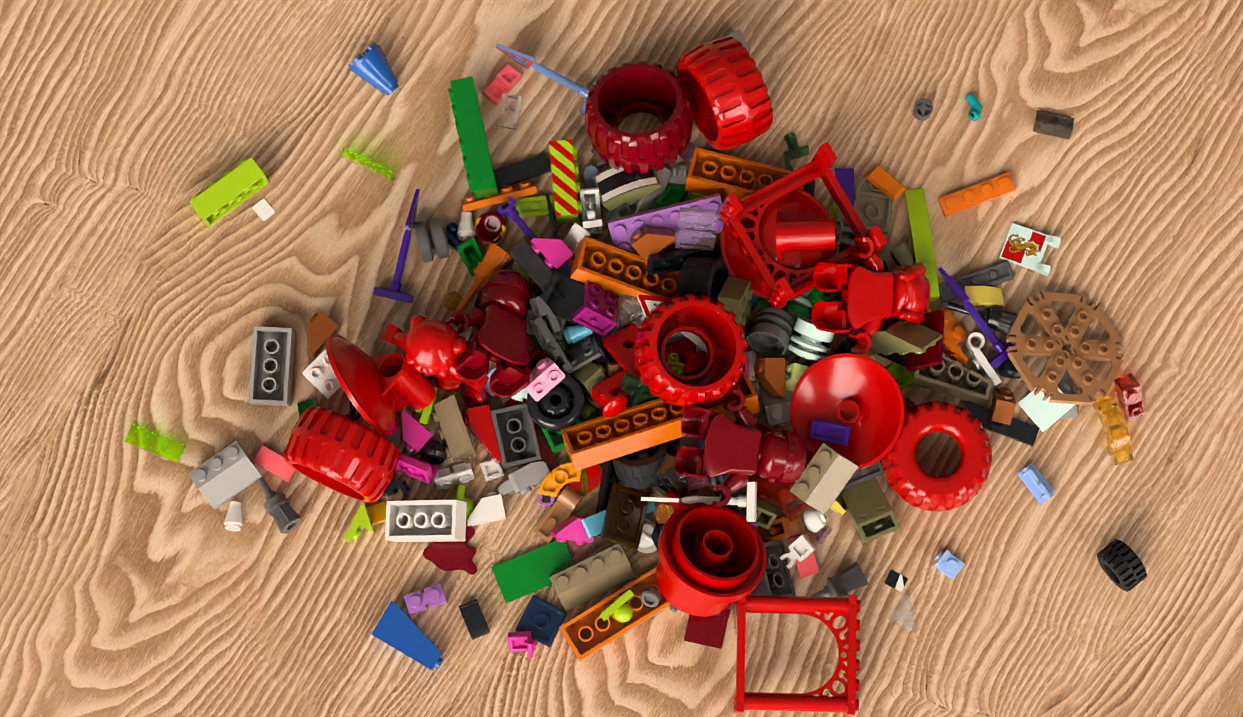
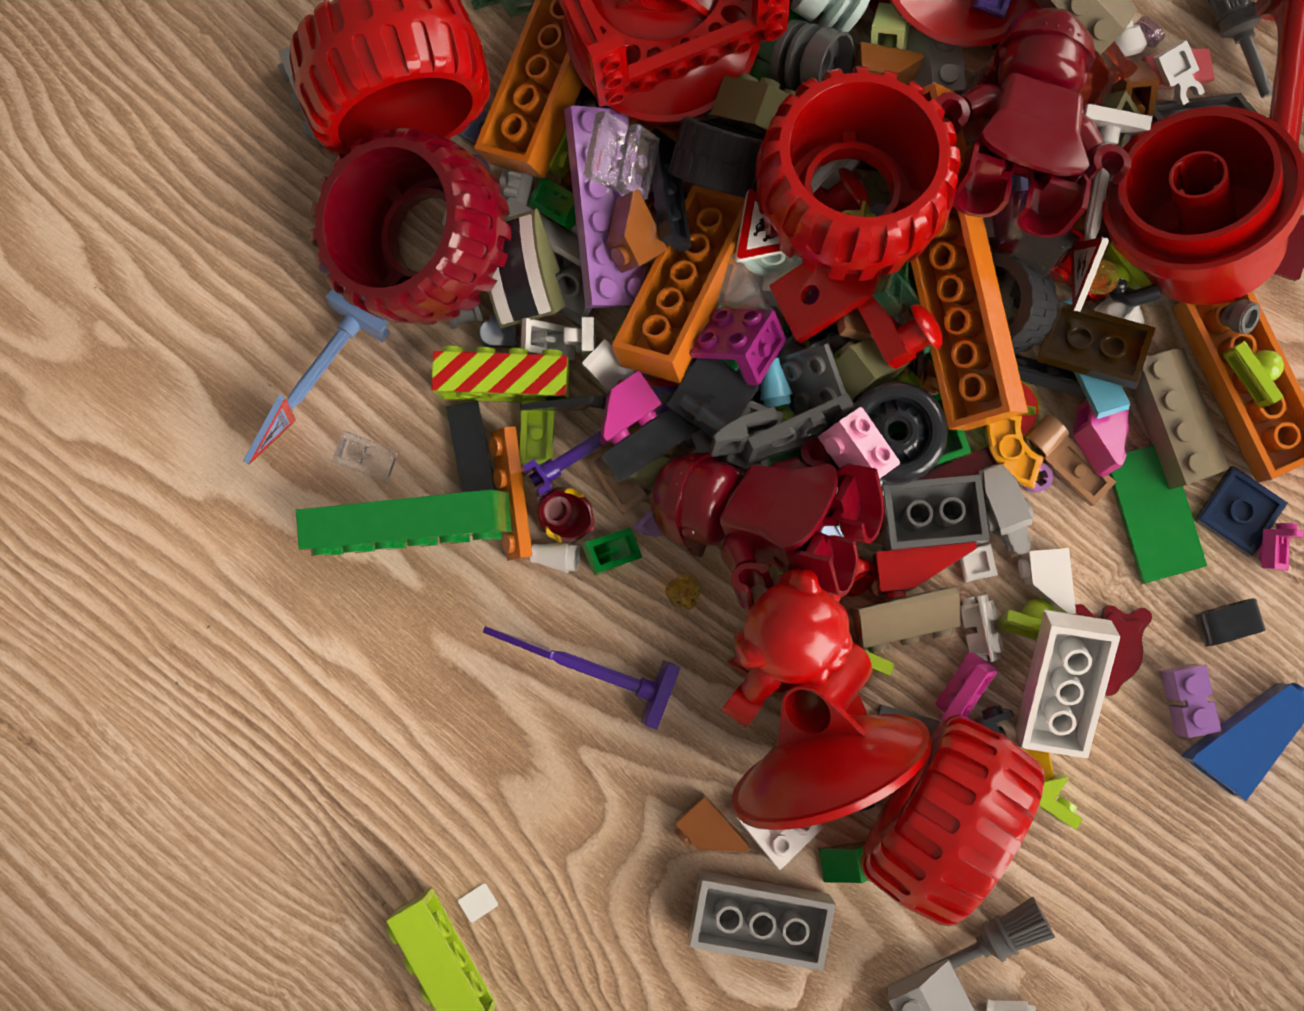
camera: 80 degrees left, 5 degrees up
(274, 463) = (921, 941): coral slope -> none
(367, 164) = (423, 712): clear neon green tile -> none
(375, 69) = (257, 680): blue cone -> none
(414, 434) = (906, 686): dark pink slope -> none
(431, 239) = (574, 616): dark grey wheel -> none
(434, 453) = (941, 656): black cone -> none
(451, 233) = (567, 583): dark blue arm -> none
(493, 260) = (634, 522): orange piece -> none
(503, 83) = (316, 465): coral slope -> none

